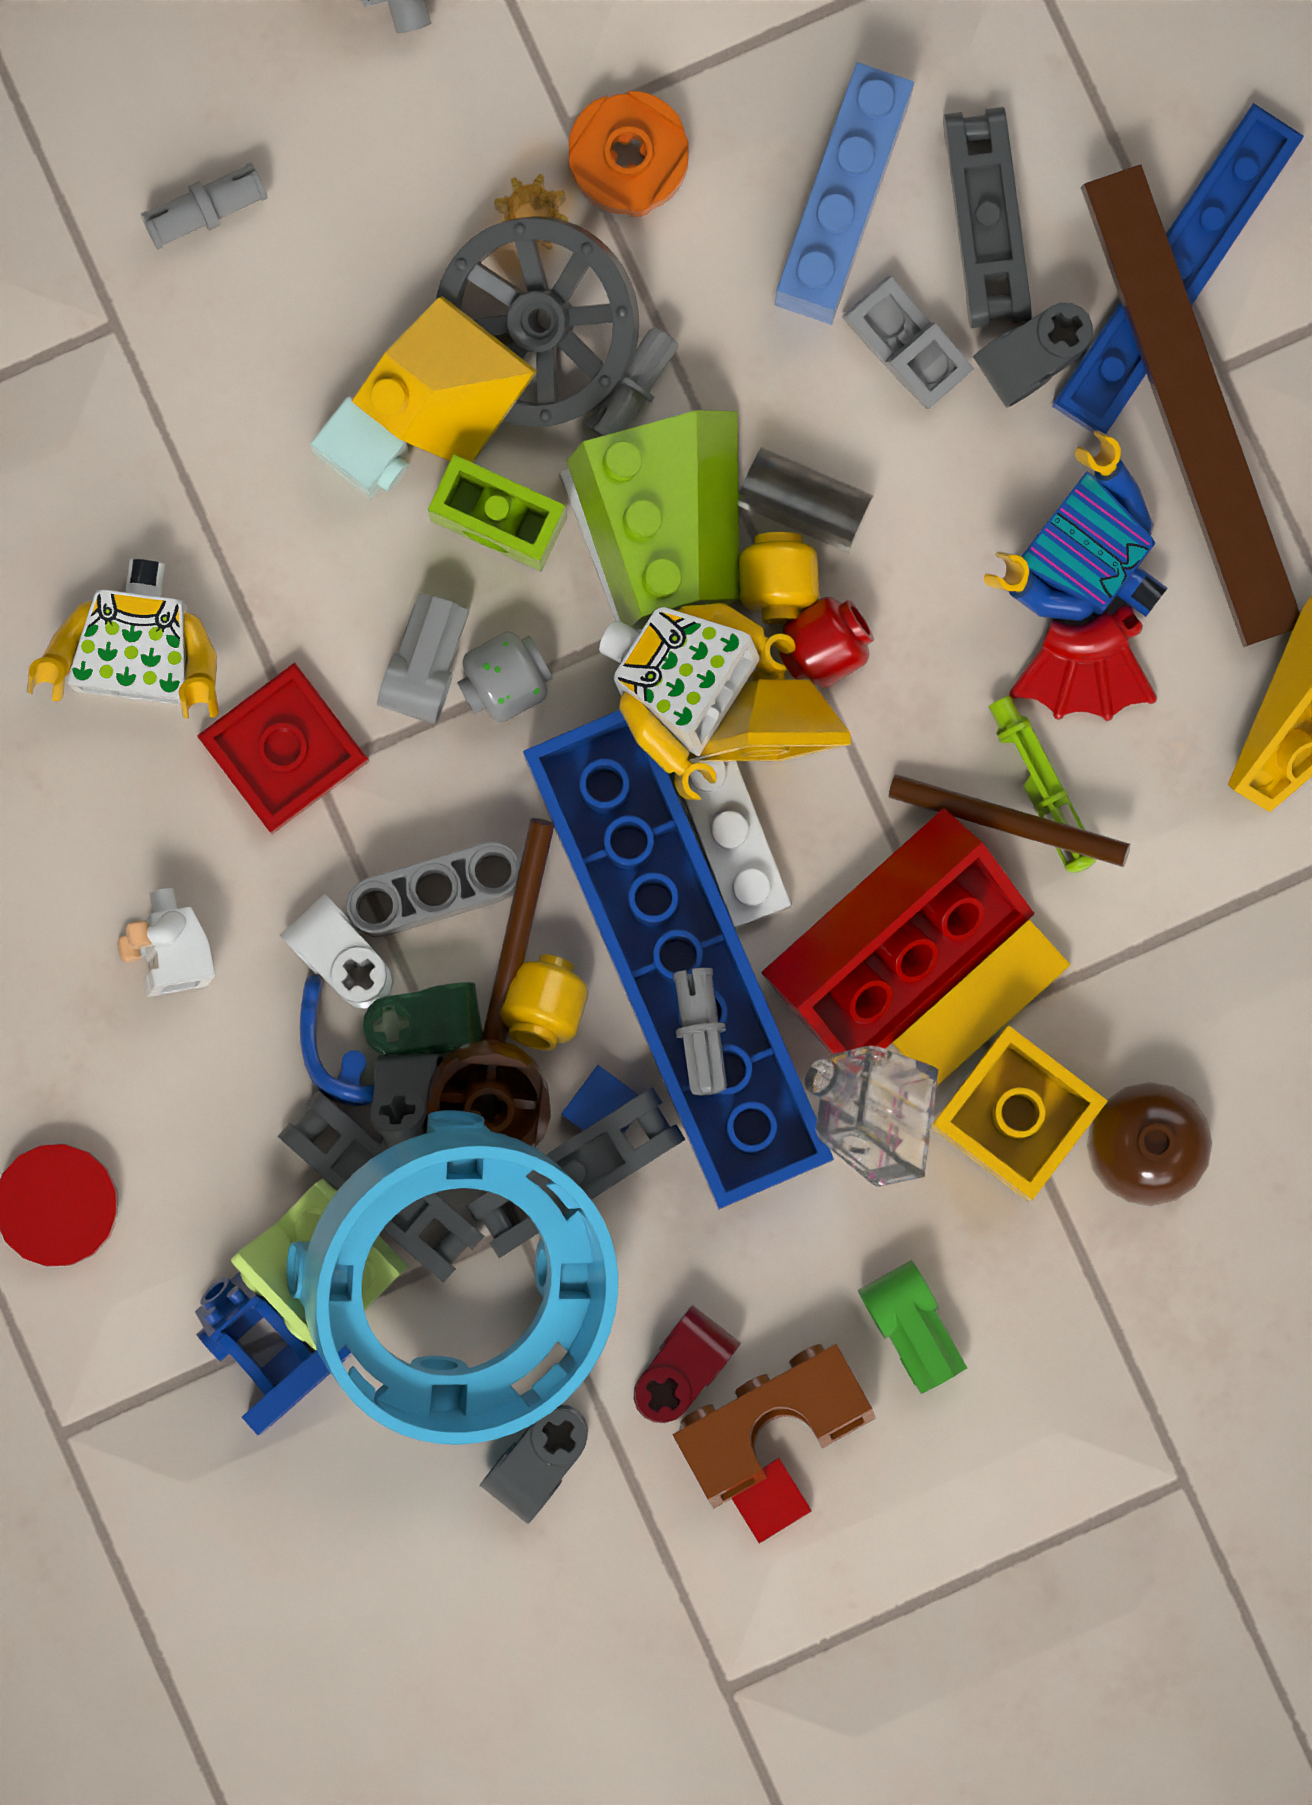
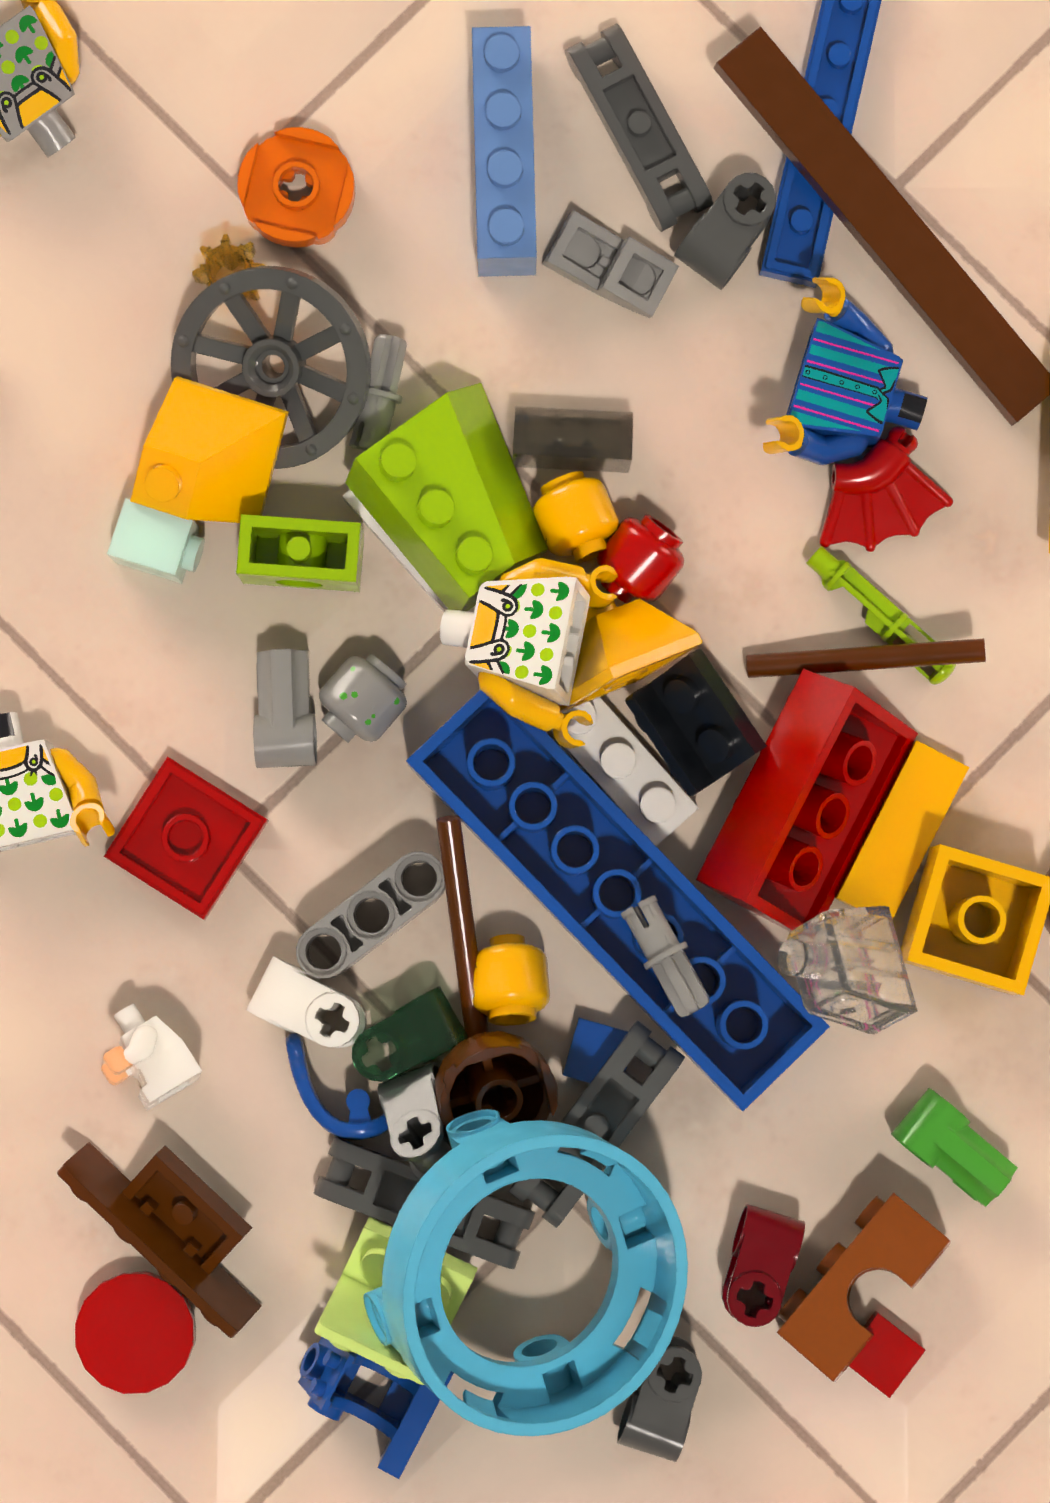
camera: 25 degrees left, 0 degrees up
(132, 1113) = (173, 1225): none -> reddish brown bracket
(818, 821) = (695, 723): none -> black bracket

